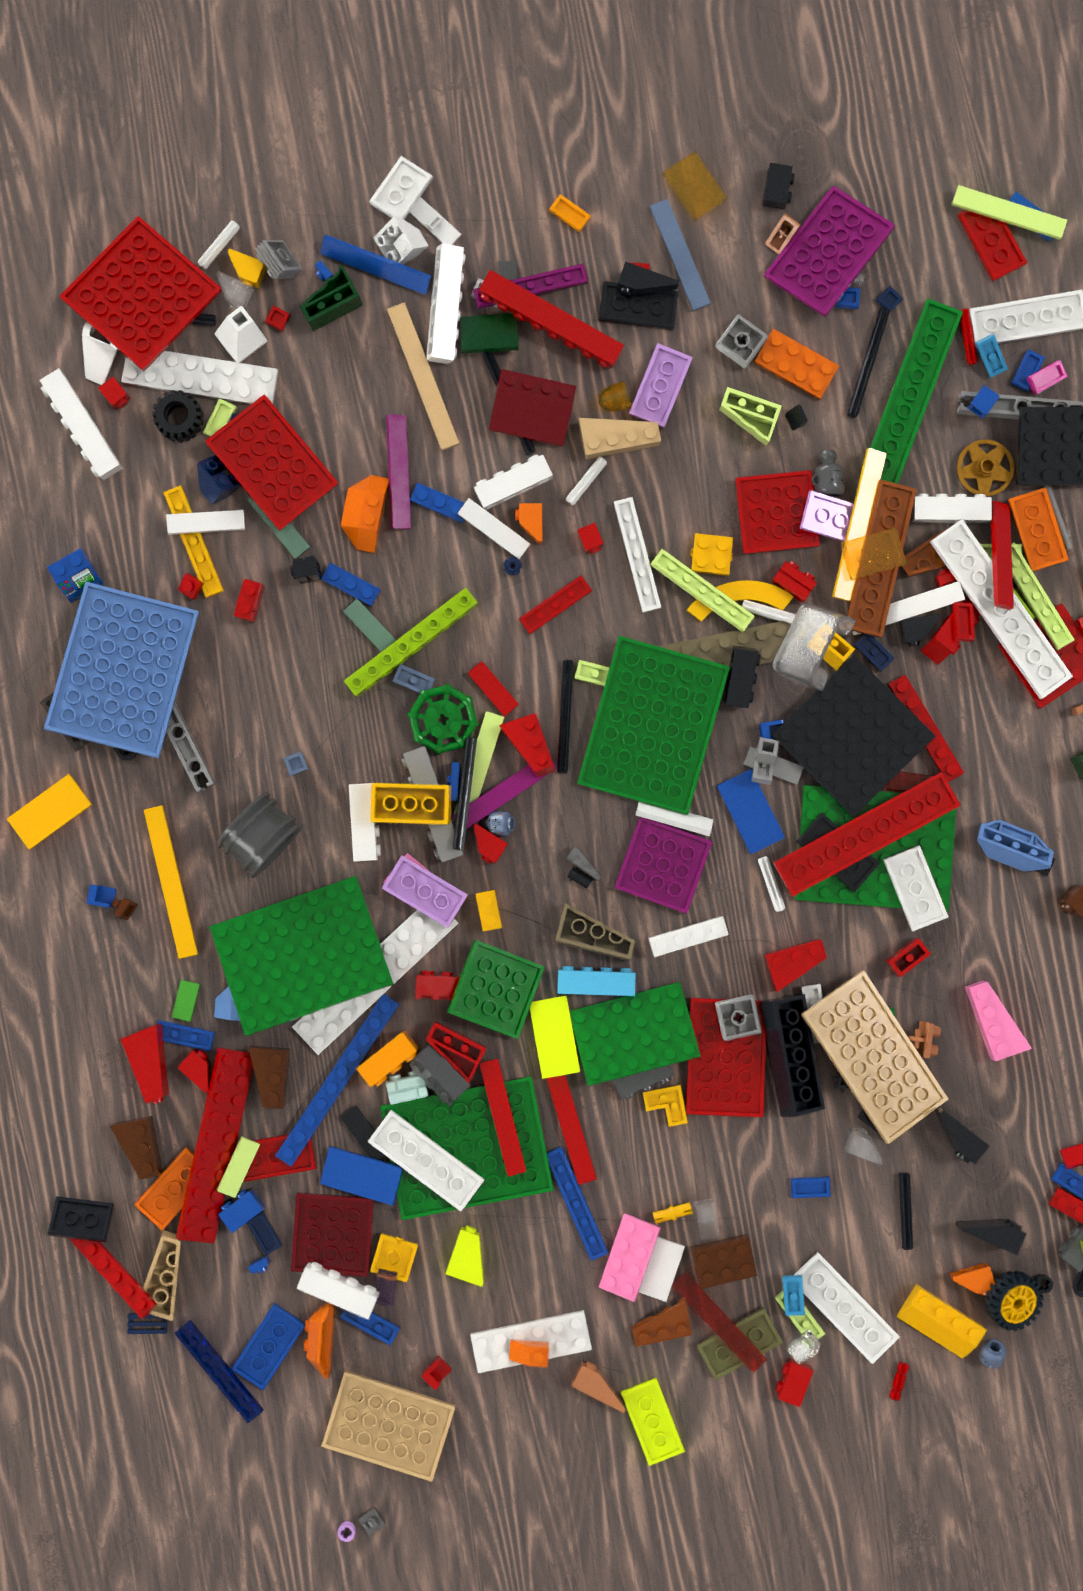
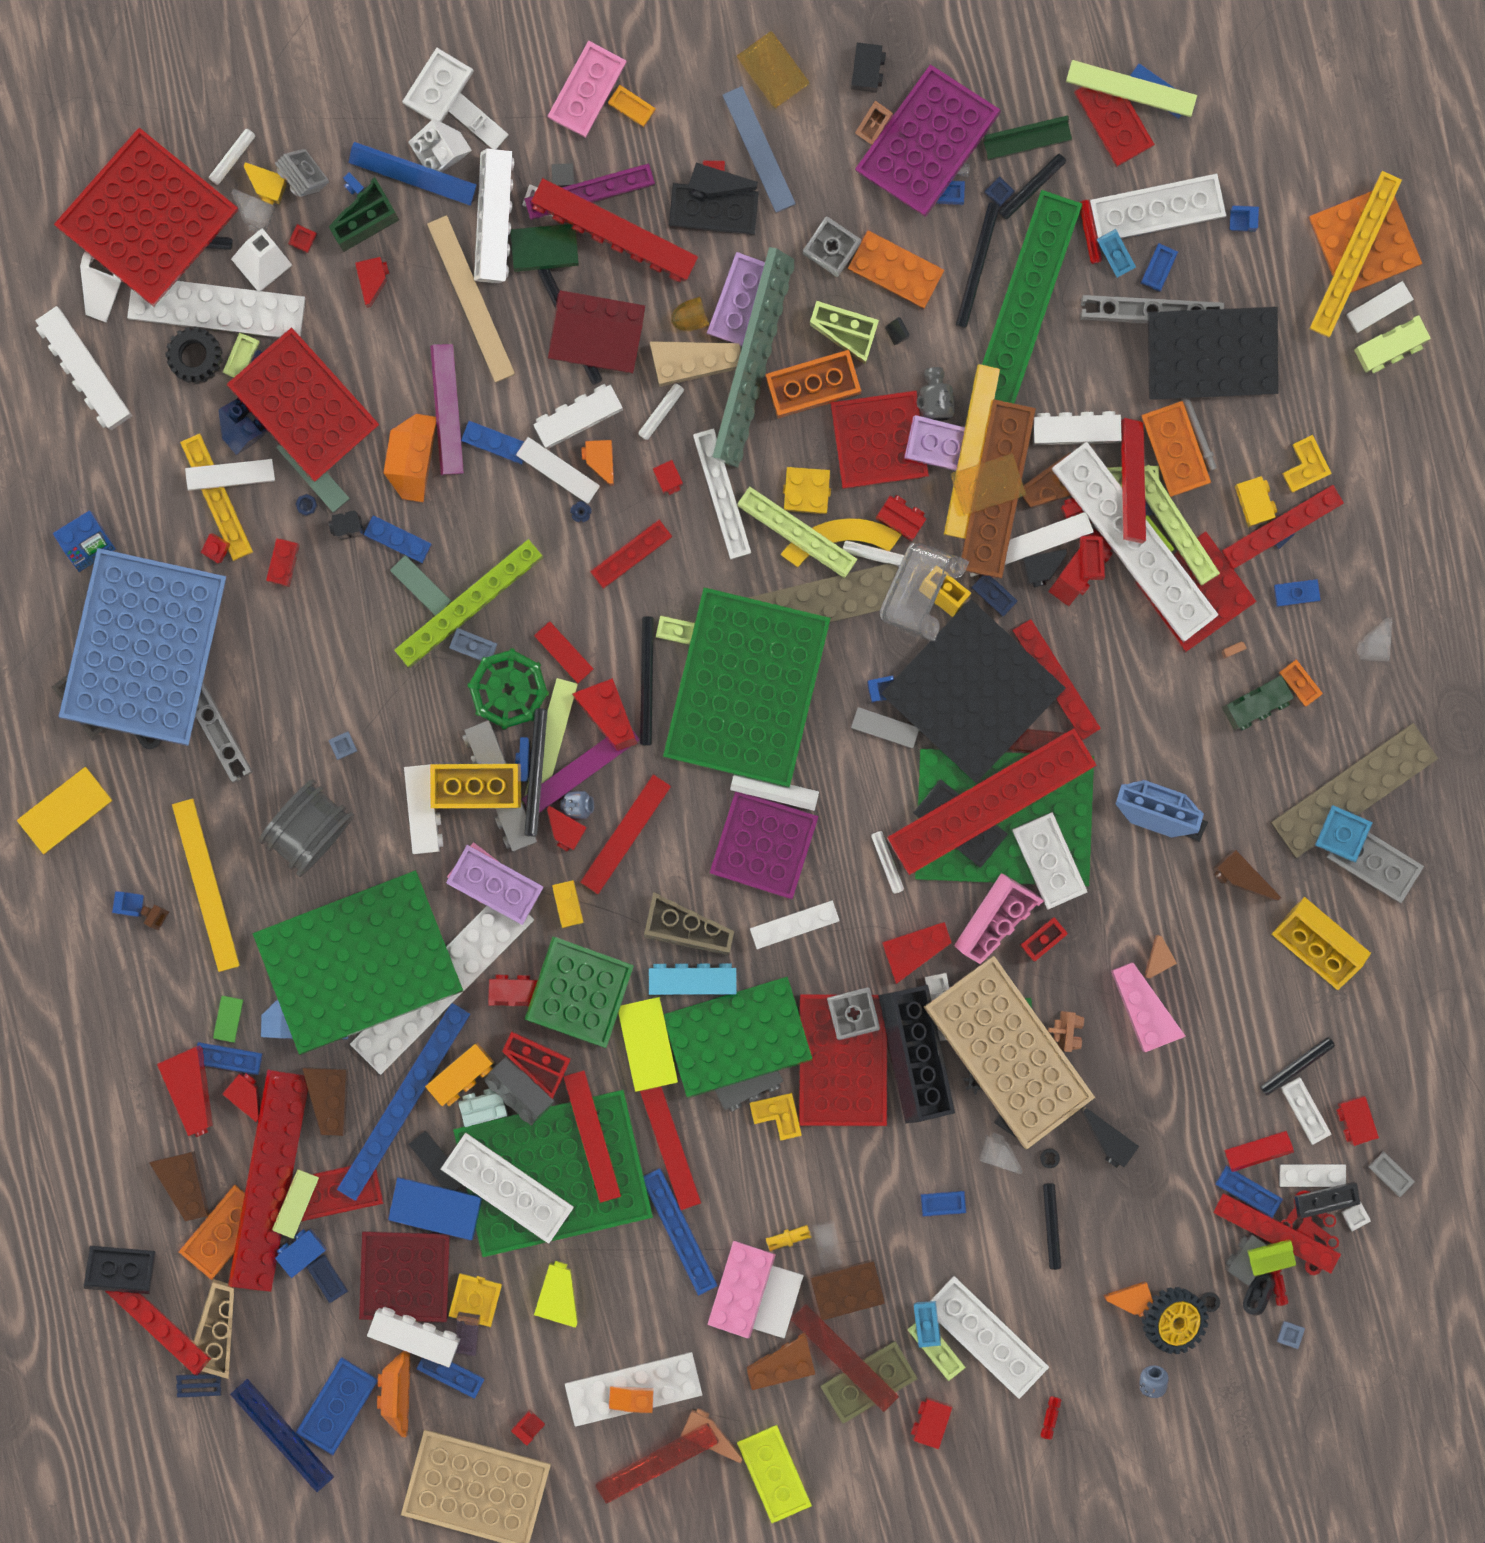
camera: 10 degrees left, 0 degrees up
(114, 393) = (120, 331): red brick -> none
(259, 1265) = (323, 1314): blue plate -> none
(272, 551) = (306, 505): none -> dark blue tile
(337, 354) = (372, 278): none -> red slope
(531, 196) = (587, 89): none -> bright pink plate
(541, 850) = (625, 834): none -> red tile
(549, 1409) = (657, 1463): none -> clear red tile
(579, 877) = (669, 863): black pin -> none
(582, 862) = (669, 843): flat silver slope -> none
(669, 435) = (753, 357): none -> sand green plate
(721, 460) = (813, 384): none -> orange brick
(741, 676) = (844, 628): black brick -> none
(750, 812) = (861, 781): blue tile -> none
(764, 760) = (873, 723): light grey brick -> none
(804, 1346) = (941, 1381): clear brick -> none
(867, 937) = (996, 917): none -> bright pink wedge
(900, 1151) = (1056, 1158): none -> black bush
(915, 252) = (1027, 138): none -> dark green panel
(919, 295) = (1032, 186): none -> black axle
(941, 1322) = (1095, 1349): yellow slope -> none
(983, 401) = (1106, 307): blue panel -> none
(985, 467) = (1114, 380): pearl gold wheel -> none
(997, 1232) = (1155, 1245): black slope -> none
(1009, 977) = (1159, 959): none -> nougat slope
(1046, 377) = (1180, 274): tile -> none

